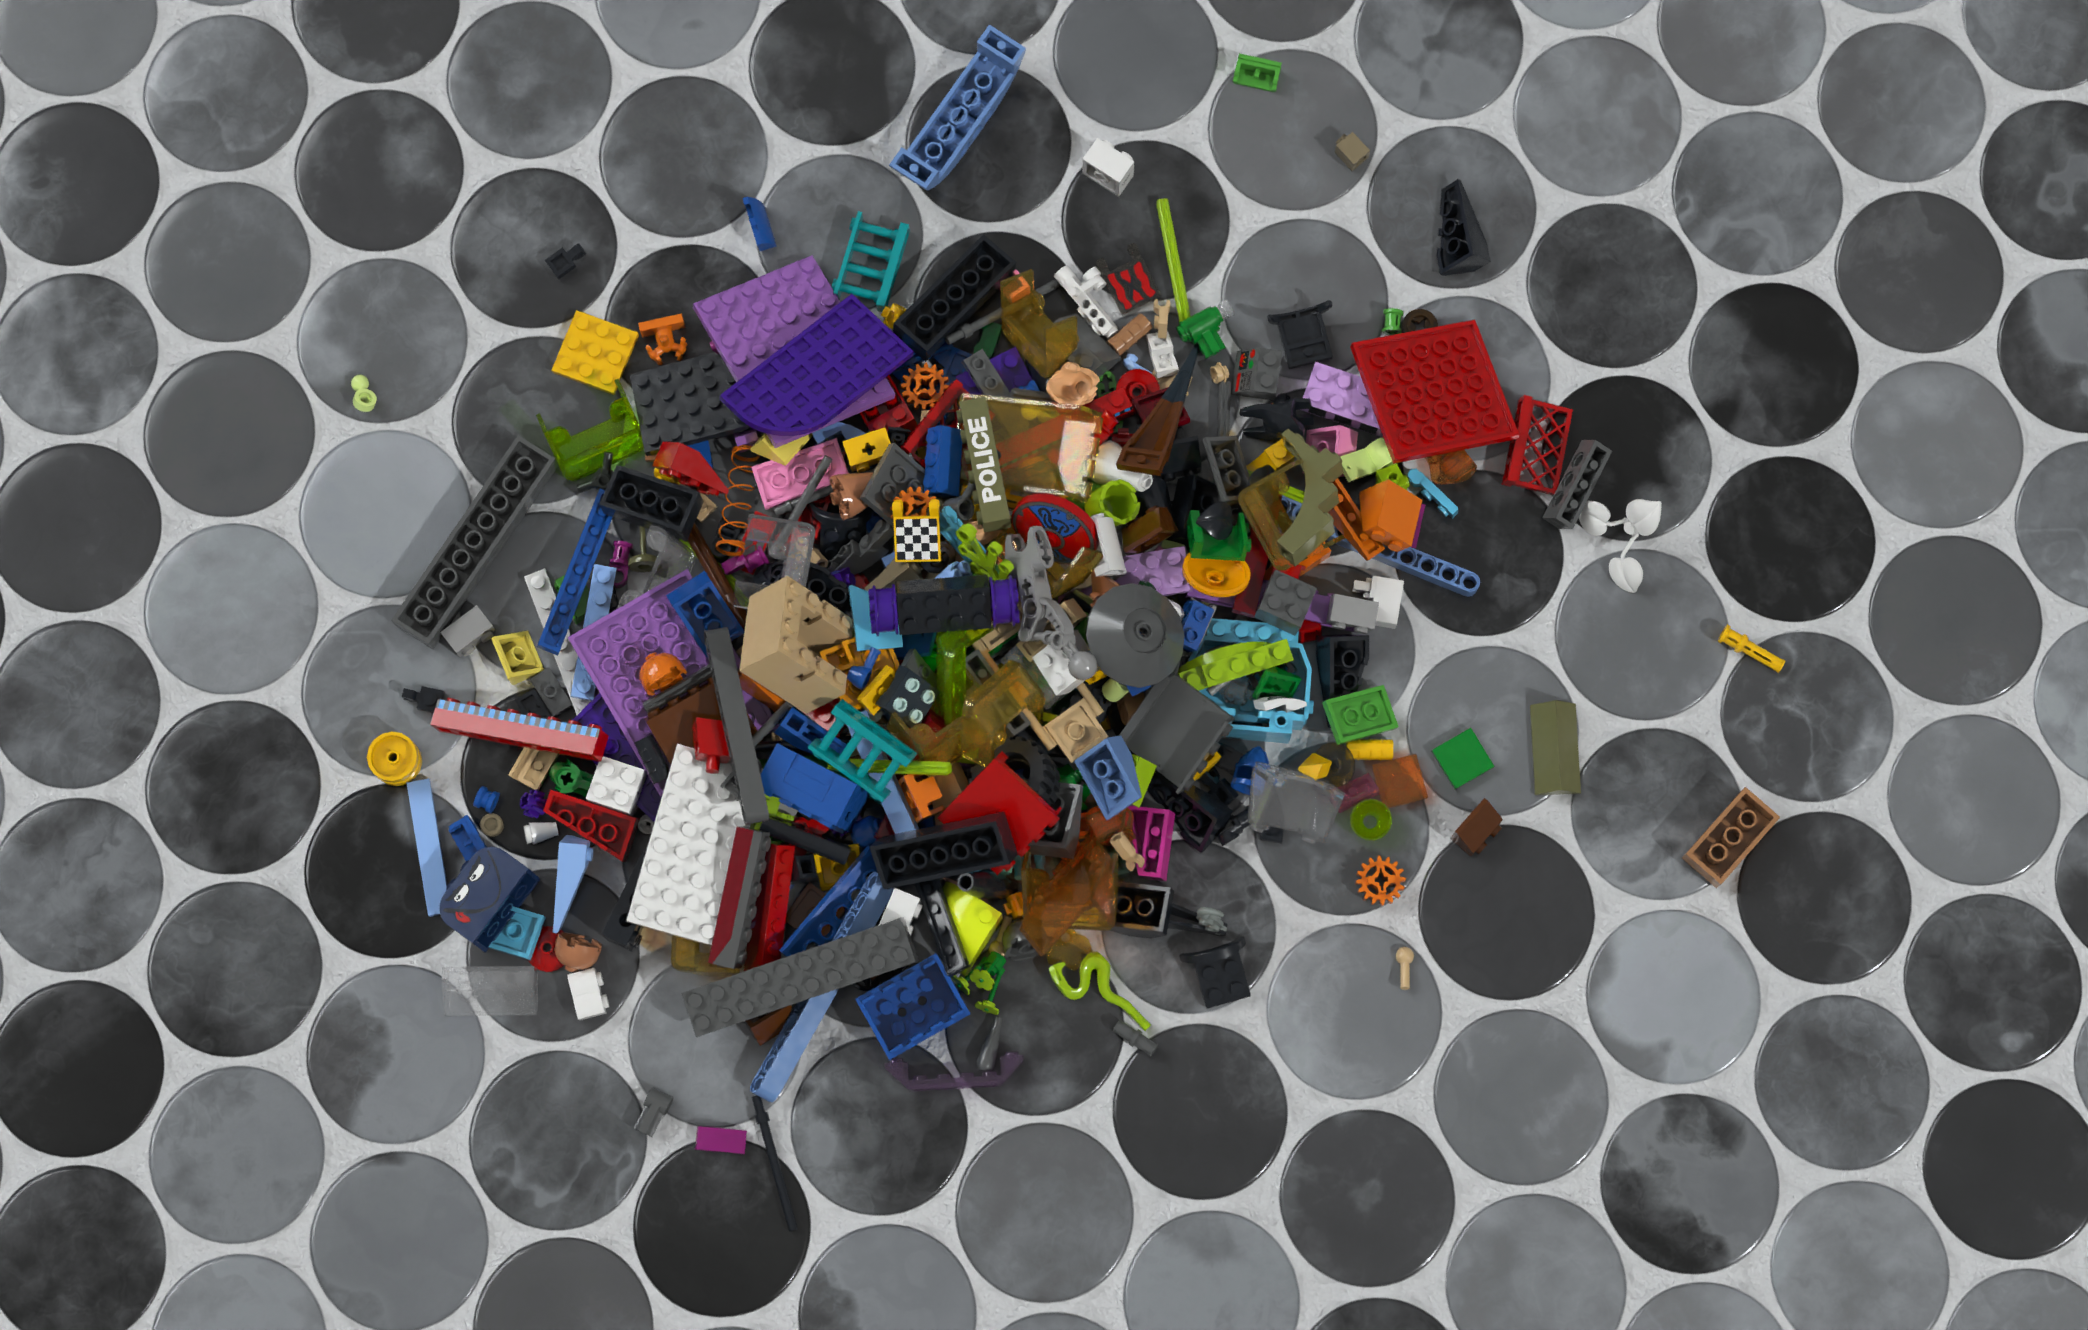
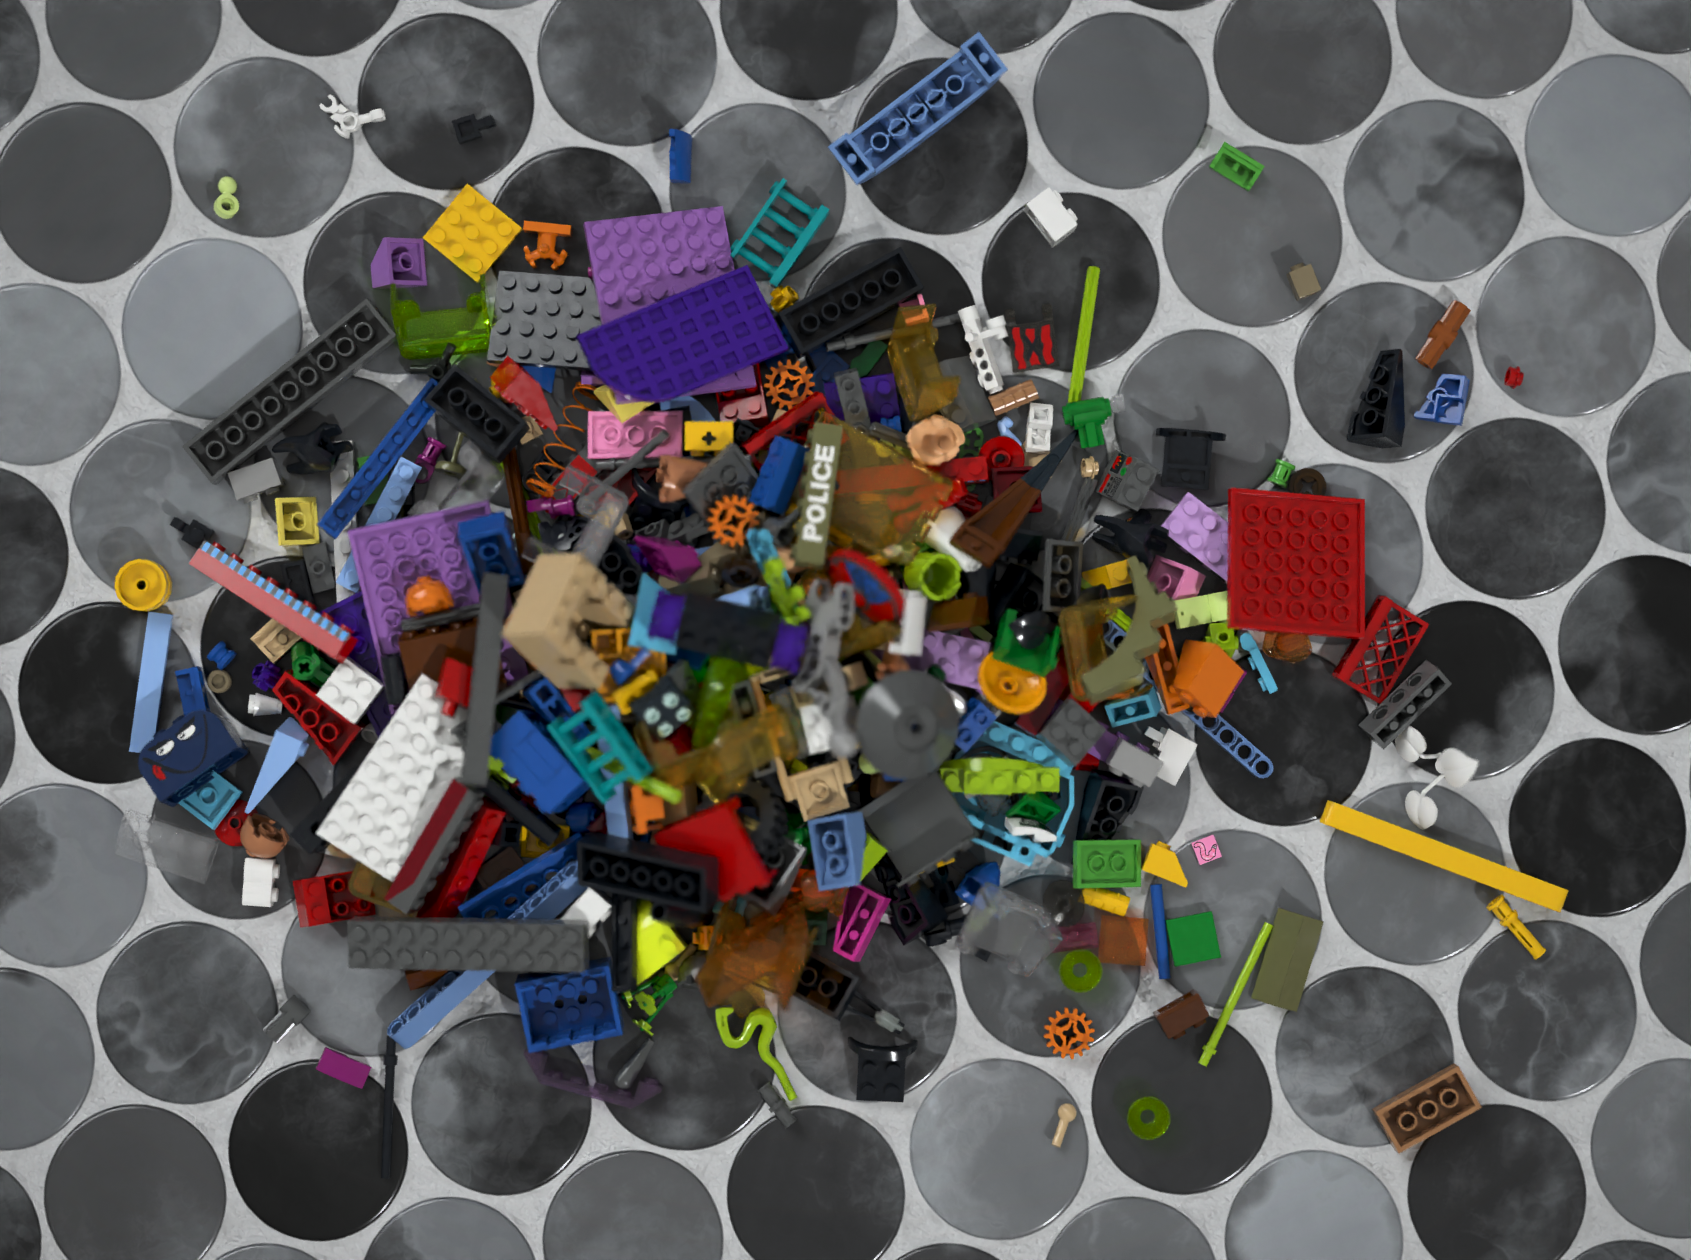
camera: 15 degrees right, 10 degrees up
(452, 291) = (348, 120): none -> white piece
(513, 585) = (314, 450): none -> black piece
(537, 395) = (399, 263): none -> medium lavender slope
(656, 988) = (328, 900): none -> red slope
(867, 566) = (669, 557): none -> magenta slope
(917, 536) = (725, 548): flag -> none
(1126, 851) = (829, 925): tan bar -> none
(1161, 321) = (1048, 395): tan plate -> none
(1315, 766) = (1045, 899): yellow slope -> none
(1333, 566) = (1132, 709): none -> medium azure brick
(1413, 699) = (1164, 864): none -> yellow slope
(1430, 762) = (1160, 931): none -> blue piece
(1445, 675) = (1206, 849): none -> bright pink tile
(1489, 924) = (1148, 1130): none -> clear neon green piece
(1491, 156) = (1442, 334): none -> dark orange piece
(1514, 851) = (1209, 1049): none -> lime bar
(1516, 212) = (1446, 401): none -> blue slope
(1567, 172) = (1513, 377): none -> red plate
(1662, 608) = (1444, 856): none -> yellow beam

